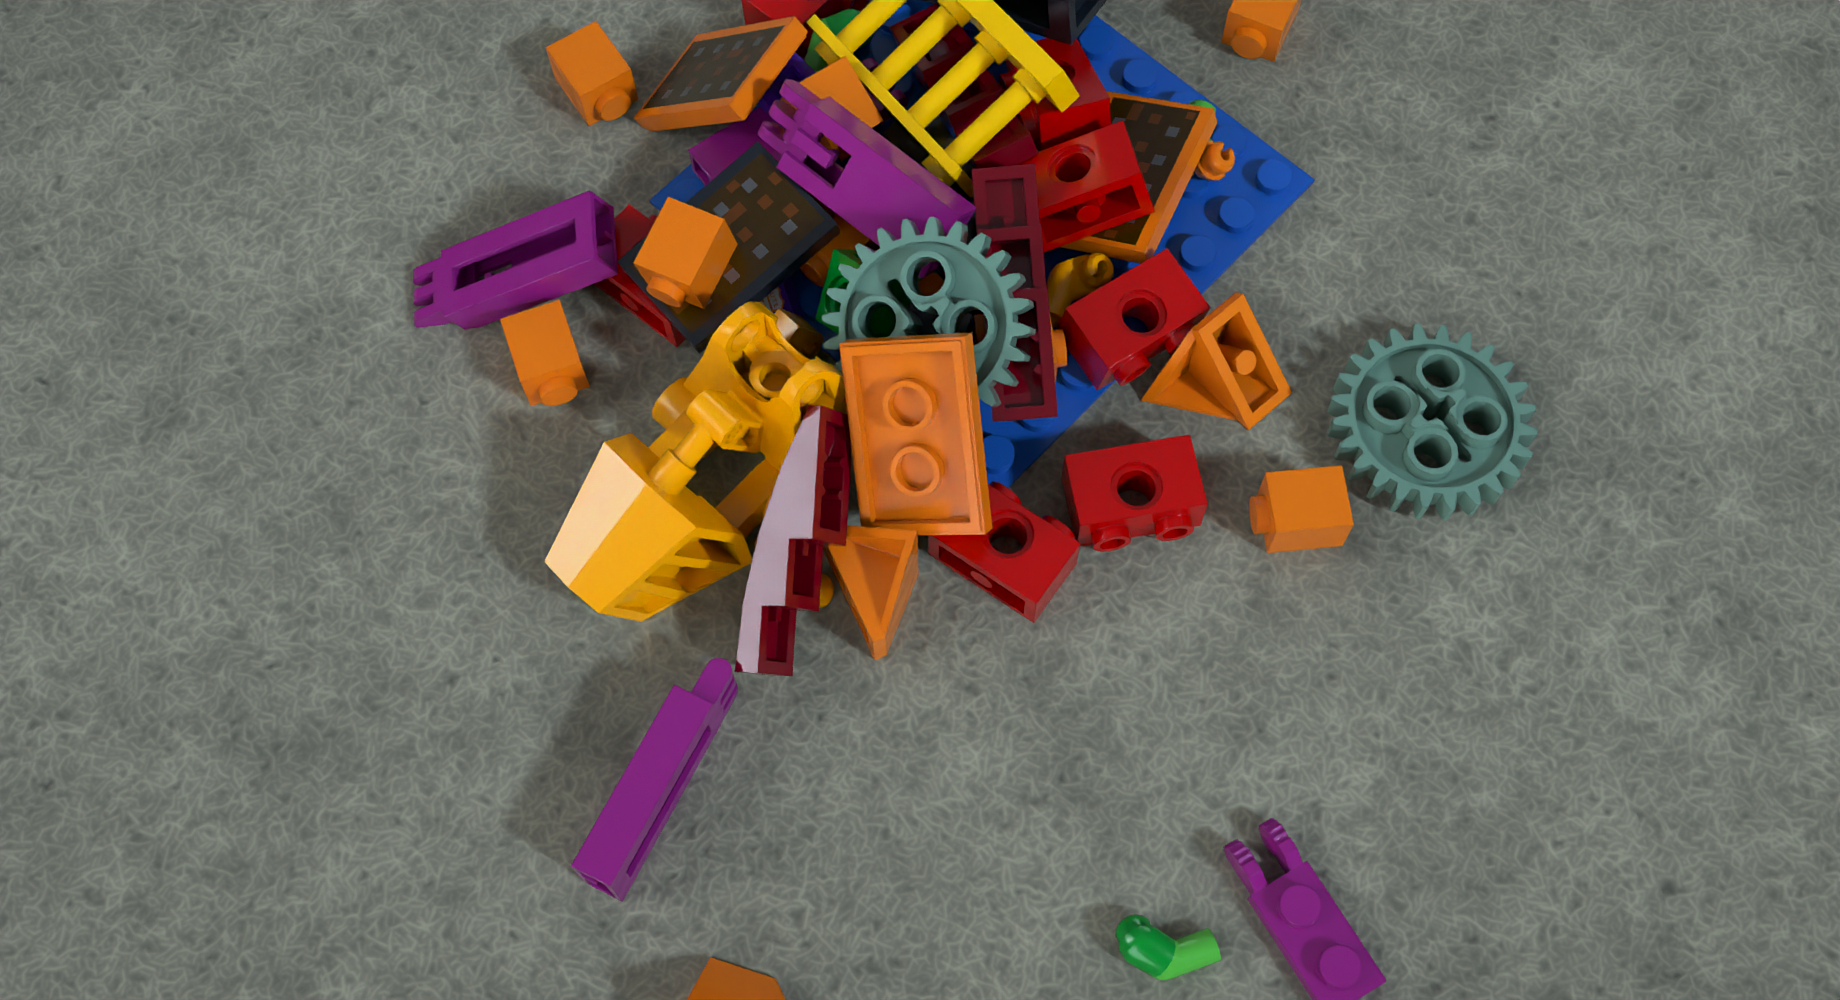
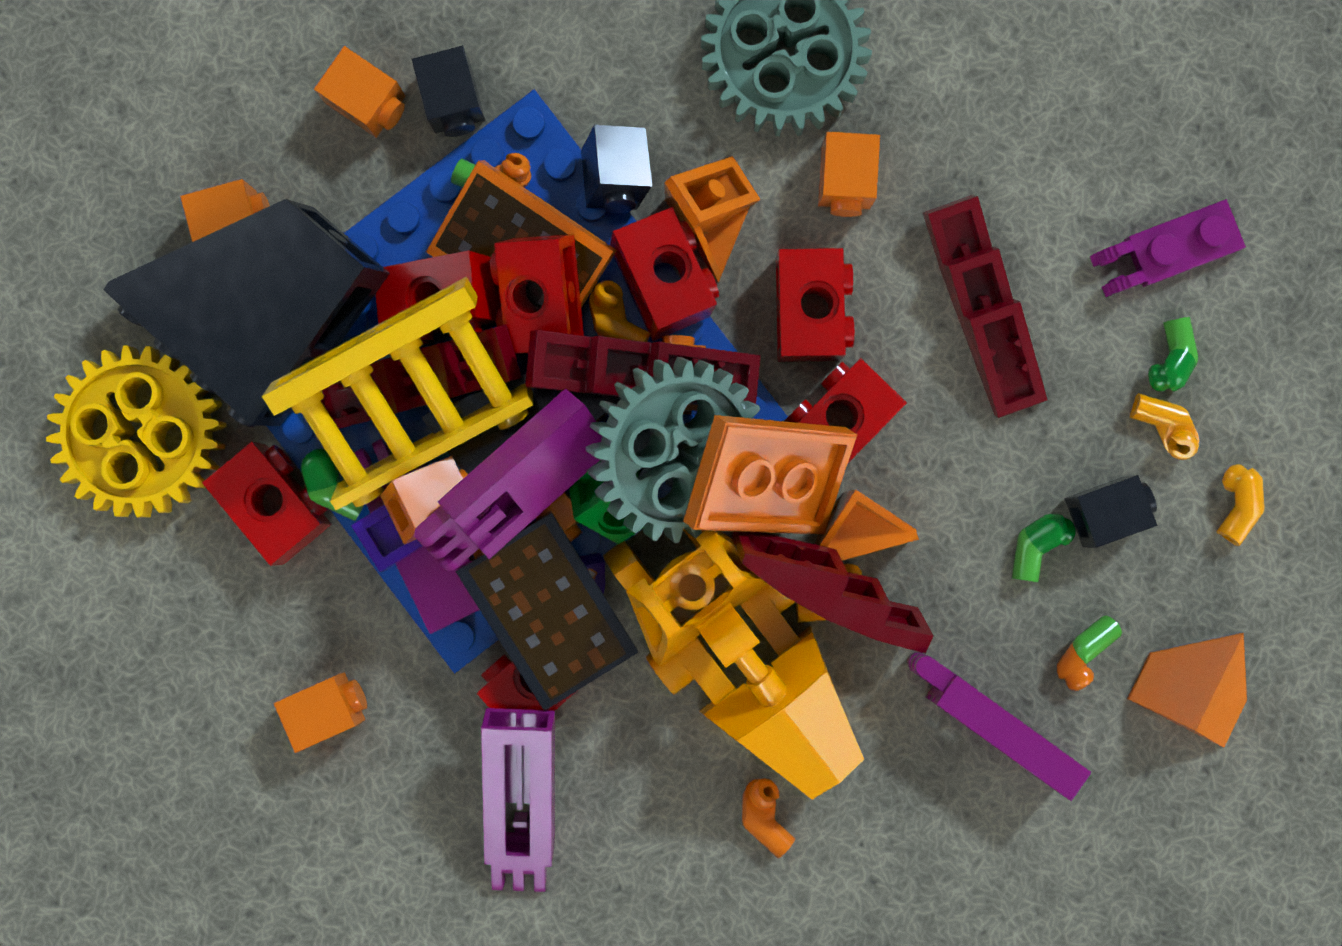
camera: 80 degrees left, 20 degrees up
(517, 536) = (759, 816): none -> orange arm
(545, 354) = (603, 780): orange brick -> none
(685, 254) = (566, 651): orange brick -> none
(722, 75) = (359, 594): tile -> none
(768, 883) = (1085, 647): none -> arm
(897, 806) = (1037, 540): none -> arm
(949, 887) = (1112, 511): none -> black brick
(1079, 957) = (1171, 422): none -> light orange arm
(1176, 697) = (985, 306): none -> dark red slope
(1243, 258) = (616, 168): none -> brick
(1287, 91) = (449, 91): none -> black brick

